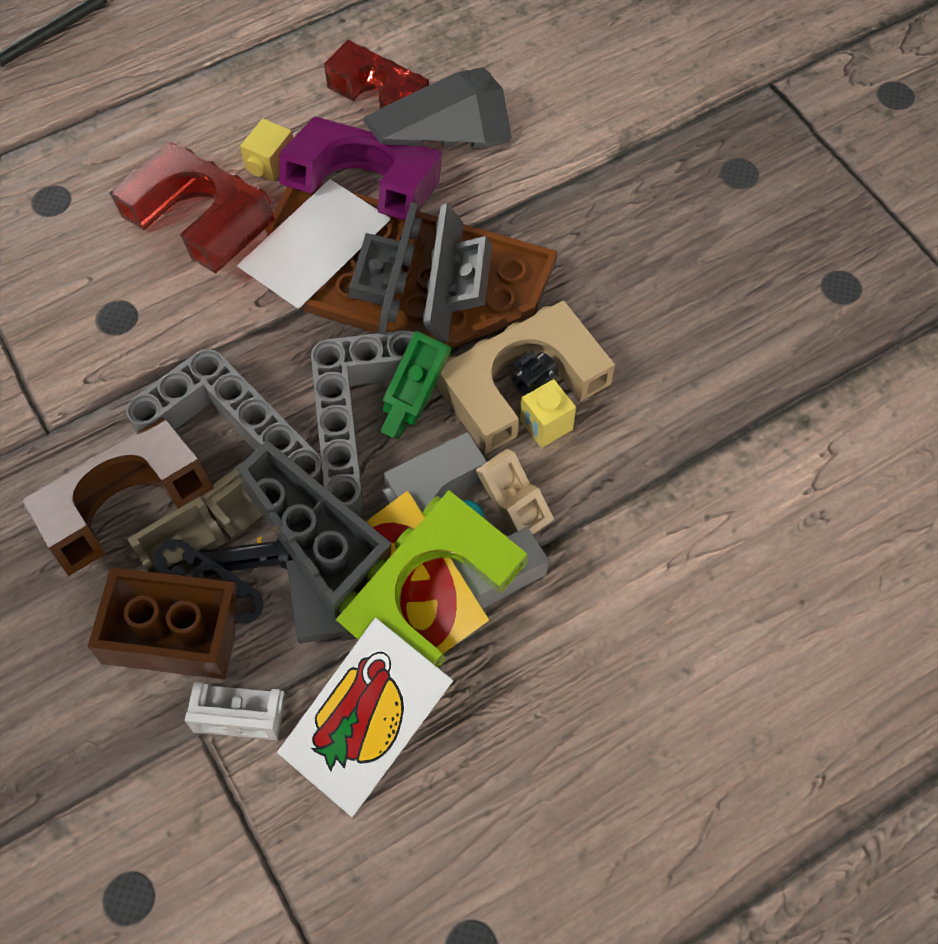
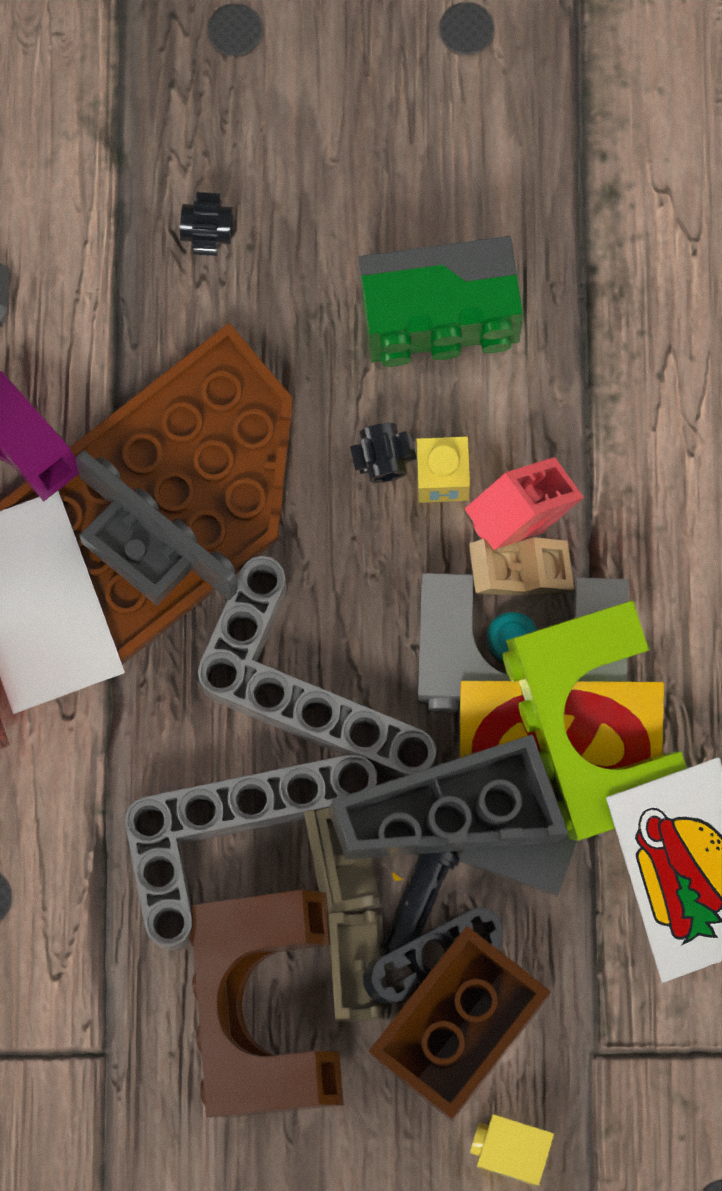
camera: 55 degrees left, 15 degrees up
(95, 712) = (512, 1149): none -> light yellow brick
(235, 711) = (594, 999): white hinge -> none
(413, 383) = (319, 595): green hinge -> none
(457, 273) = (202, 457): dark grey bracket -> none
(469, 377) = (344, 400): tan arch -> none
(555, 464) = (523, 503): none -> coral brick
(609, 209) = (206, 223): none -> black gear
(656, 346) = (440, 300): none -> green piece

